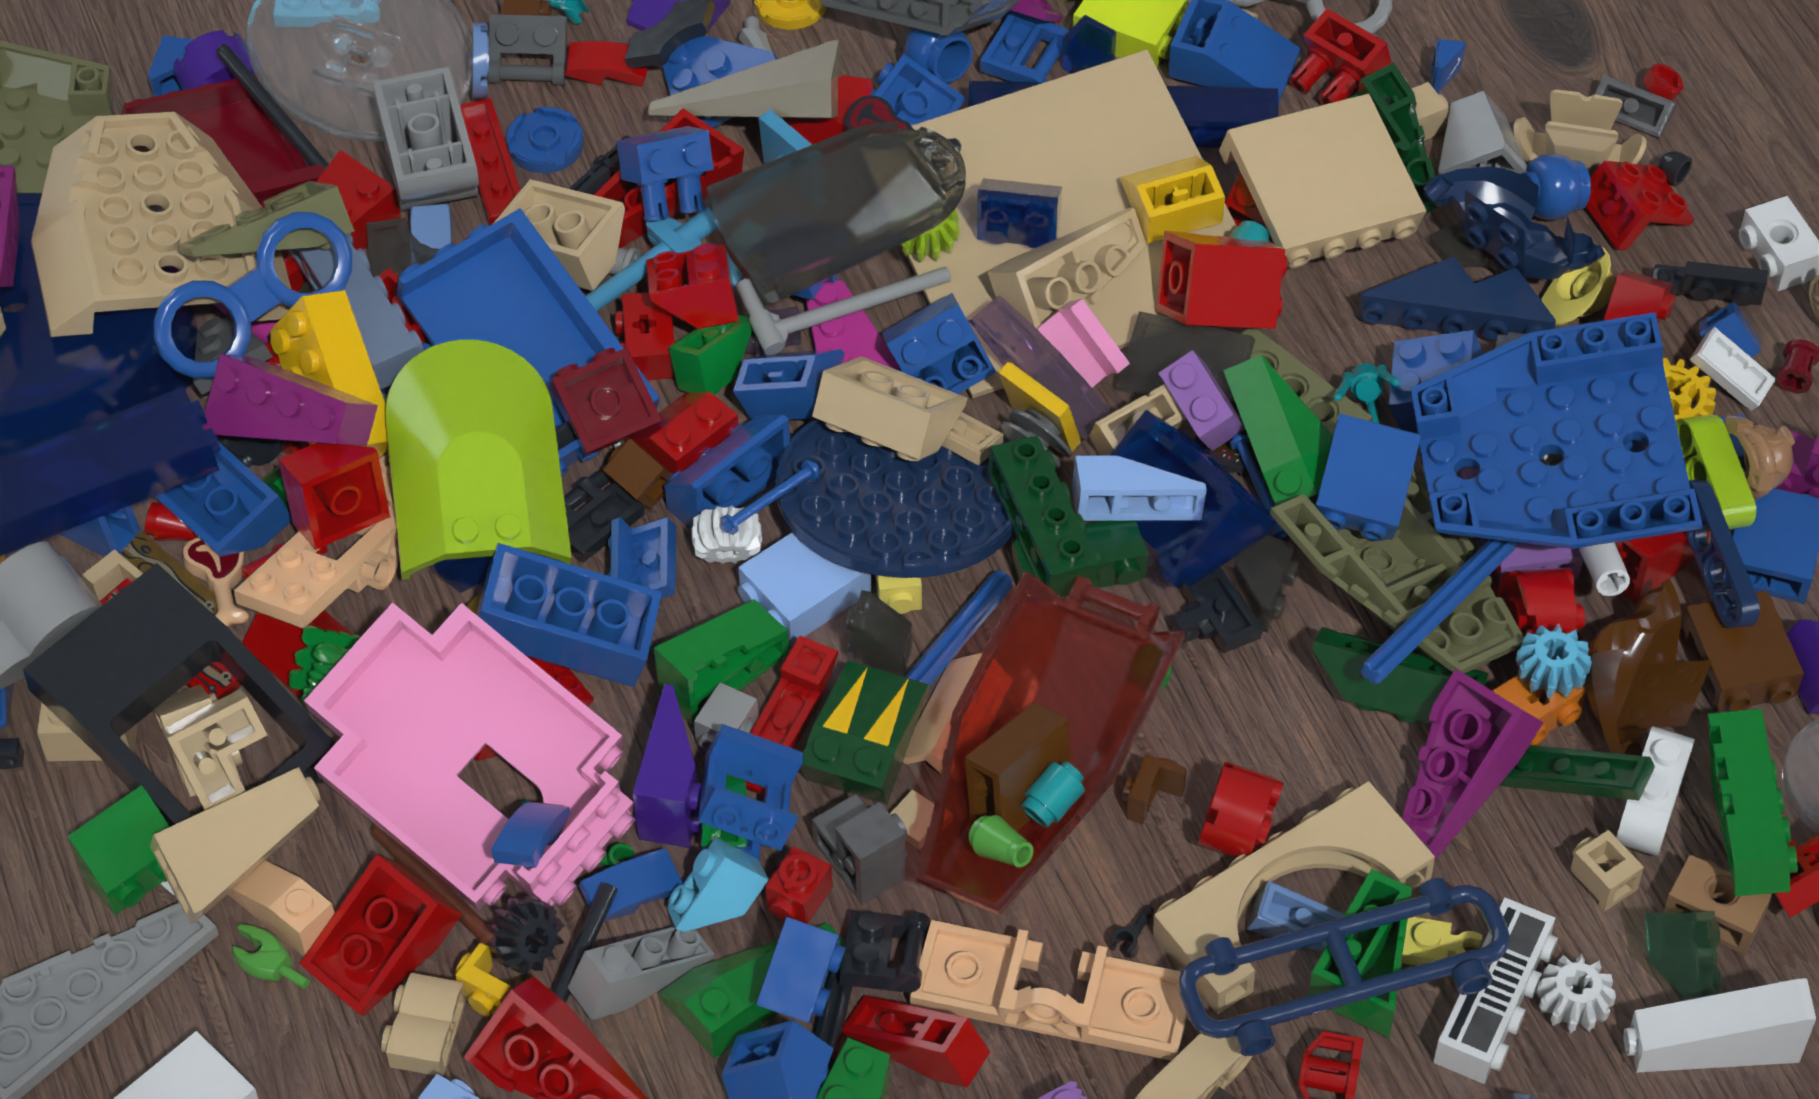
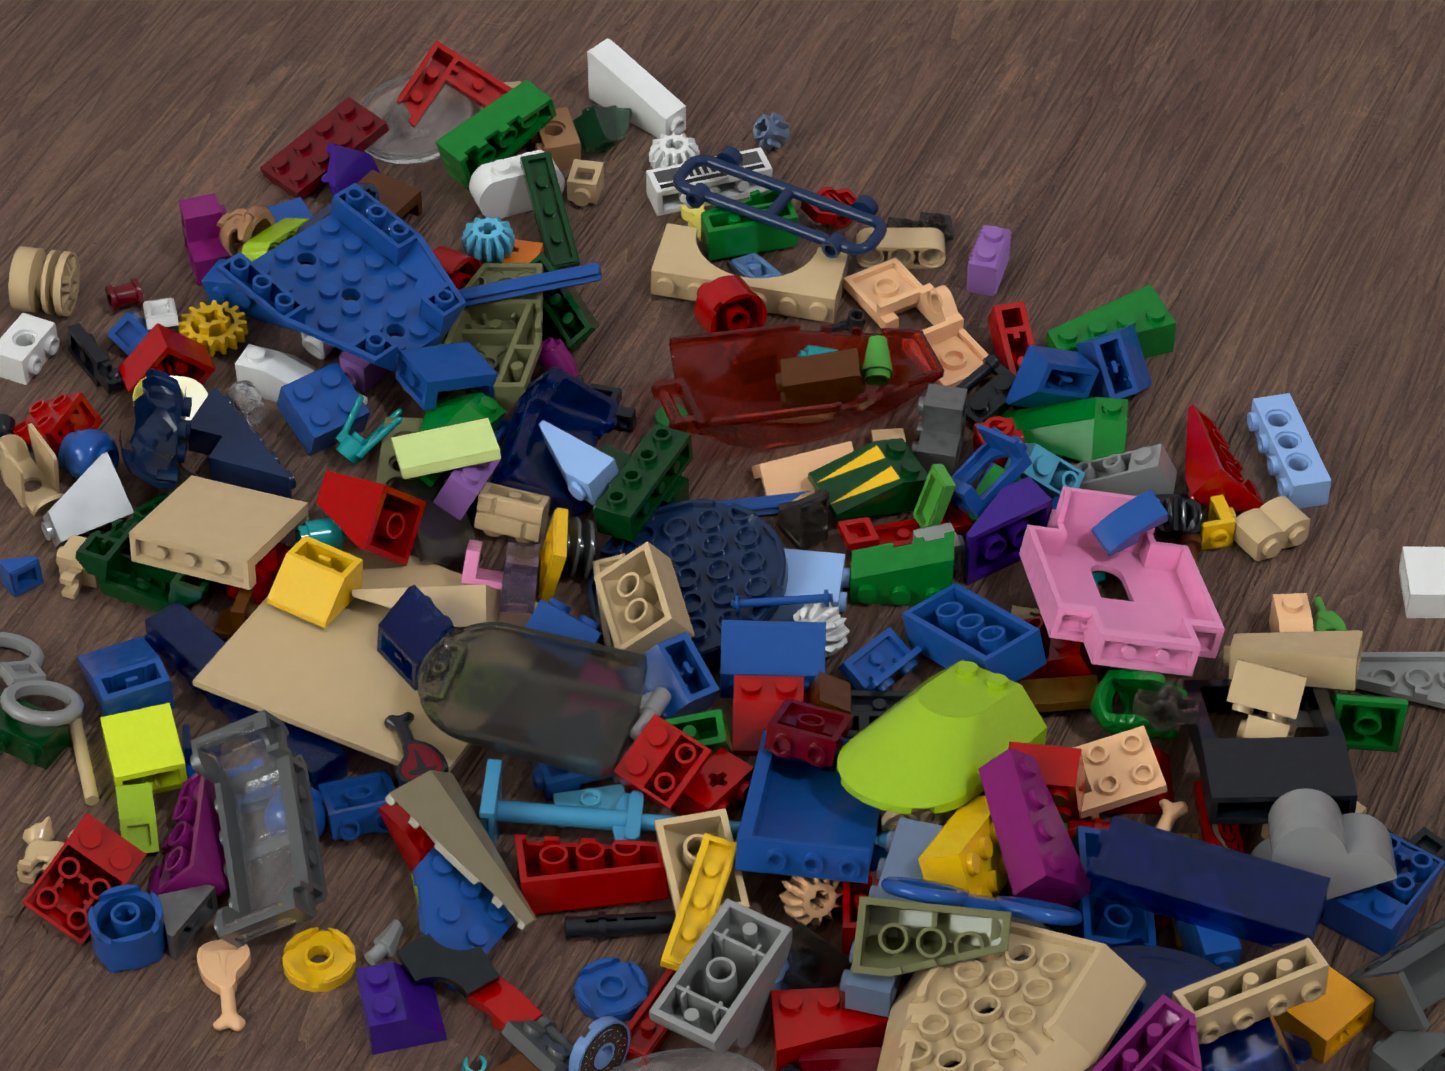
camera: 135 degrees left, 10 degrees down
(292, 642) = (1168, 703): none -> clear smoke piece
(379, 934) = (1246, 579): red slope -> none
(520, 189) = (700, 898): none -> yellow tile
(666, 155) = (592, 823): blue brick -> none
(763, 726) = (934, 497): none -> bright green tile
(1209, 151) = (233, 618): none -> reddish brown bracket
(1235, 374) = (446, 448): none -> yellowish green tile
(1323, 608) = (556, 354): none -> magenta brick
(1343, 50) = (67, 613): red brick -> none
(1467, 755) = (587, 241): magenta wedge -> none
(1636, 673) = (444, 214): reddish brown animal -> none

